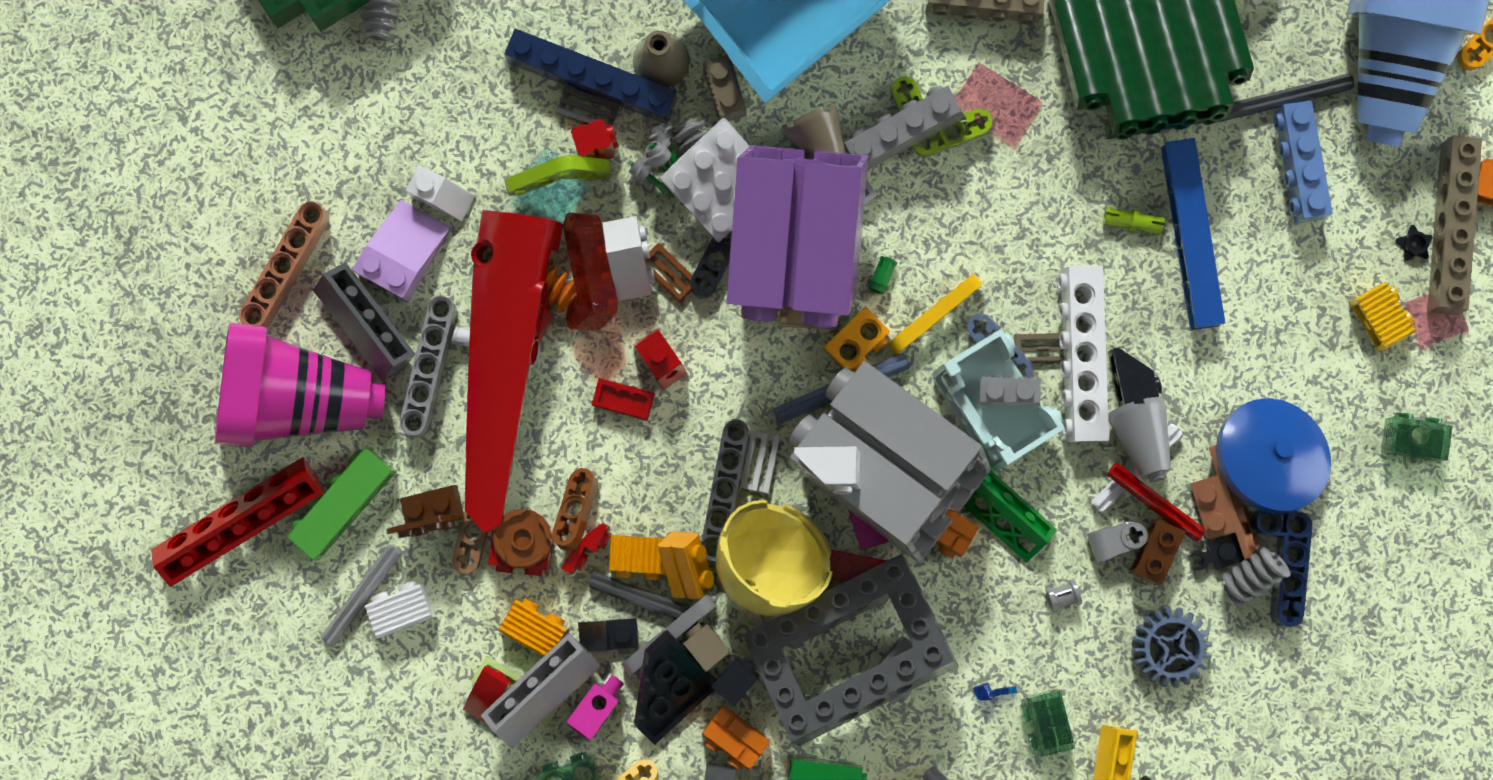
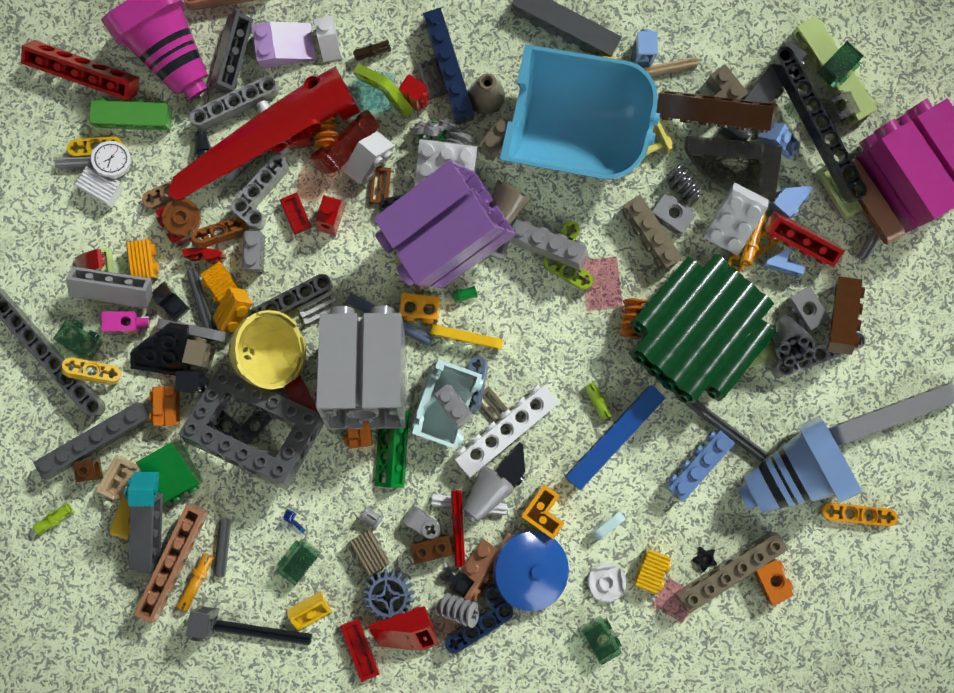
camera: 45 degrees right, 0 degrees up
(338, 600) = (89, 142): none -> yellow beam
(380, 569) = (111, 159): none -> white tile
(429, 512) = (159, 161): reddish brown bracket -> none
(449, 447) = (201, 143): none -> black cone
(496, 152) = (372, 50): none -> dark brown axle
(562, 414) = (263, 190): none -> light grey beam
(631, 485) = (253, 251): none -> light grey brick
(834, 466) = (328, 339): white slope -> none
(838, 664) = (245, 429): none -> black beam
(1063, 97) = (633, 307): none -> orange piece
(1102, 630) = (368, 552): none -> dark tan brick
(1208, 731) = (360, 649): none -> red plate
(1209, 390) = (538, 511): none -> light orange brick
(1232, 657) = (406, 631): none -> red slope
(1289, 325) = (607, 525): none -> light aqua beam
(1343, 378) = (601, 579): none -> white tile

